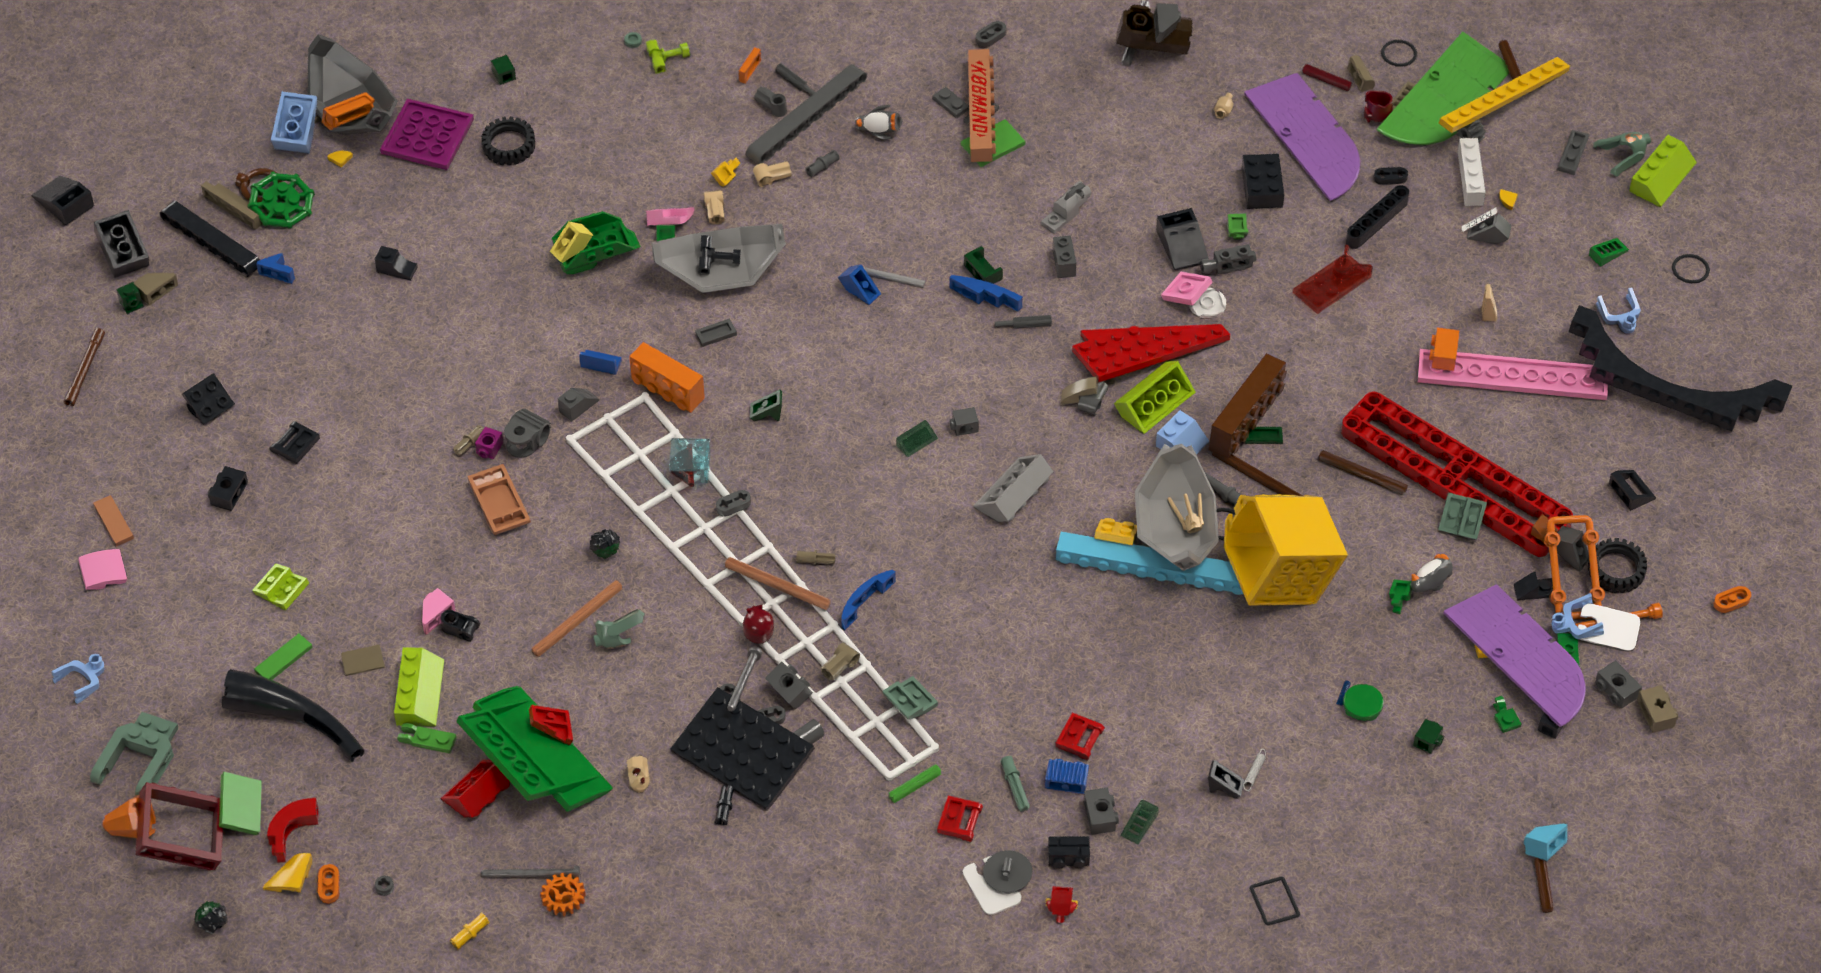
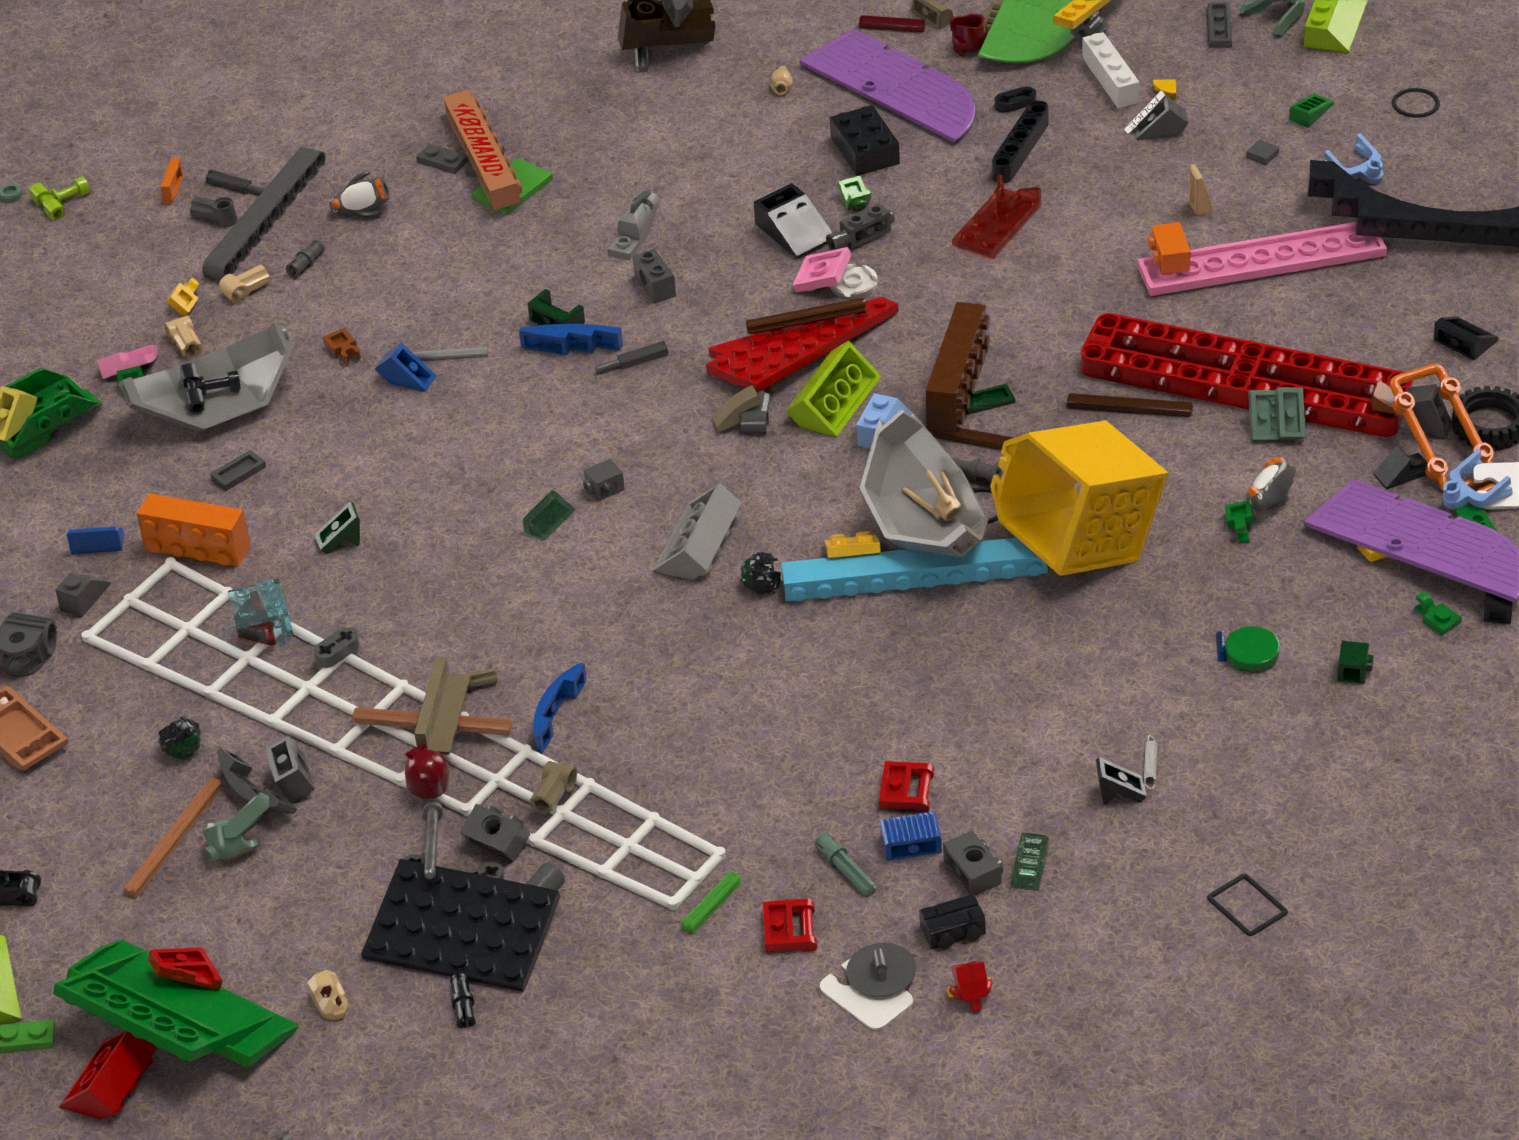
camera: 15 degrees left, 10 degrees down
(633, 581) = (236, 773): none -> dark grey slope
(669, 591) = (289, 769): none -> dark grey brick
(784, 578) = (441, 708): none -> dark tan panel
(823, 247) = (342, 344): none -> dark orange plate
(910, 698) = (664, 803): sand green slope -> none
(989, 33) = (463, 77): dark grey plate -> none
(1044, 534) = (759, 573): none -> black piece
(1158, 327) = (805, 316): none -> reddish brown axle
(1555, 279) = (1262, 152): none -> dark grey tile

